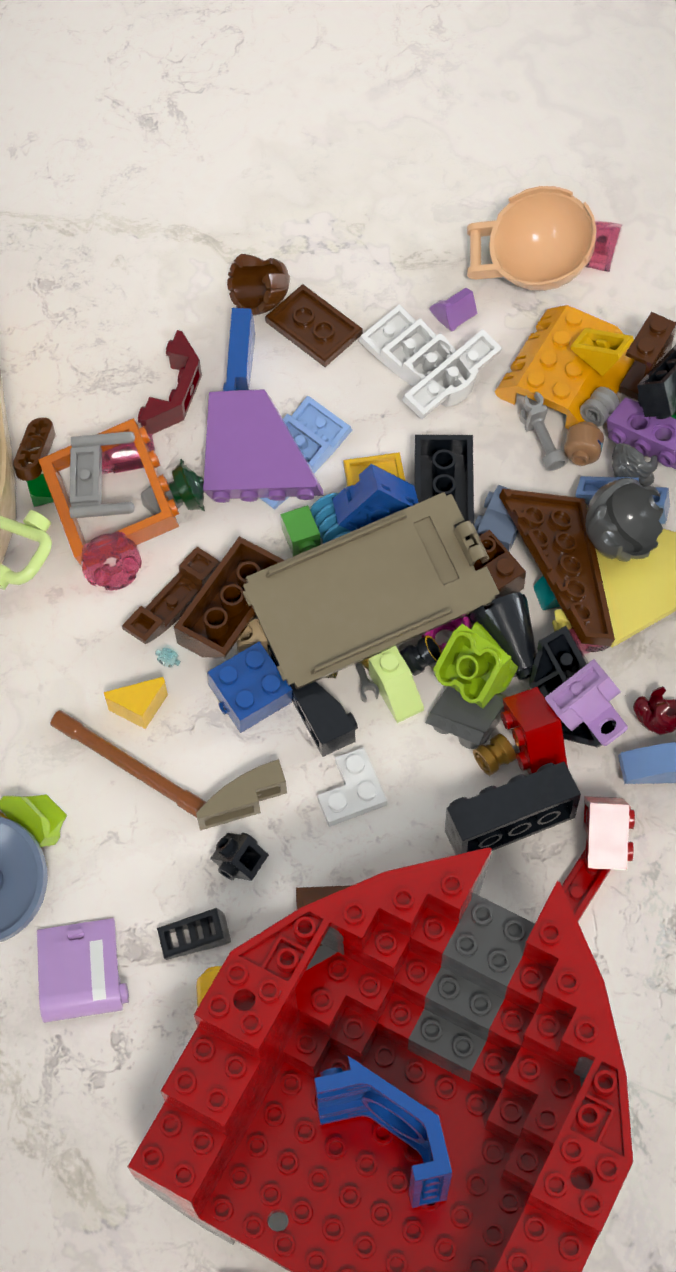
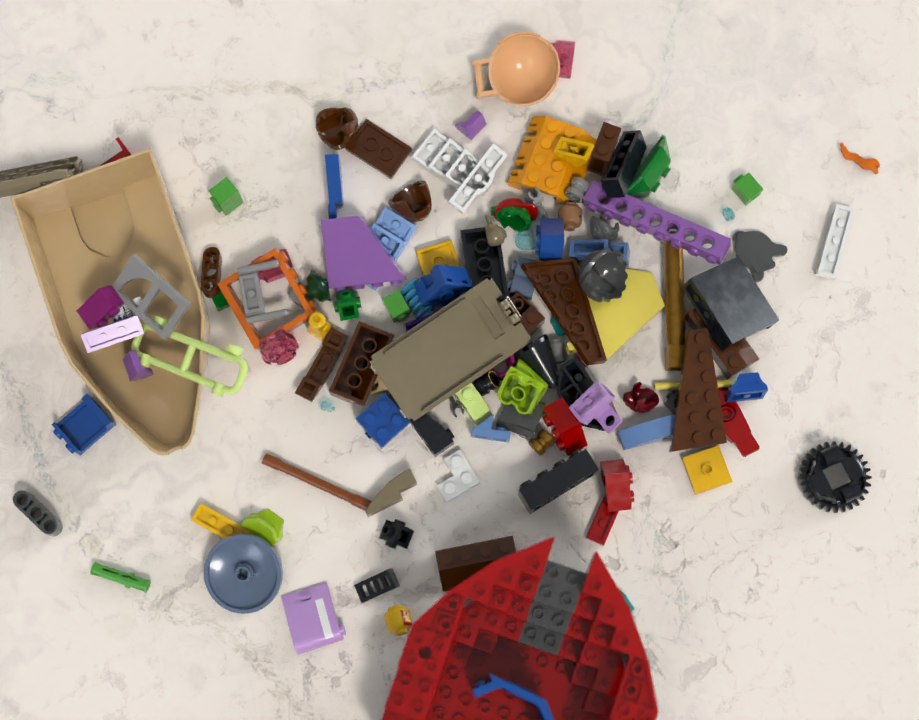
camera: 10 degrees left, 15 degrees up
(77, 351) = (225, 197): none -> bright green brick
(138, 701) = (314, 440): yellow slope -> none
(162, 414) = (289, 233): dark red slope -> none
(176, 539) = (318, 326): none -> yellow piece
(226, 527) = (347, 305): none -> green brick
(351, 396) = (412, 202): none -> reddish brown hair
(407, 726) = (485, 431): none -> medium blue slope
(465, 442) = (494, 233): none -> dark tan piece
(501, 429) = (515, 214): none -> green hair
(511, 470) = (525, 240): none -> clear light blue tile
(539, 623) = (557, 349): none -> light grey pin
(550, 464) = (549, 239): none -> blue brick

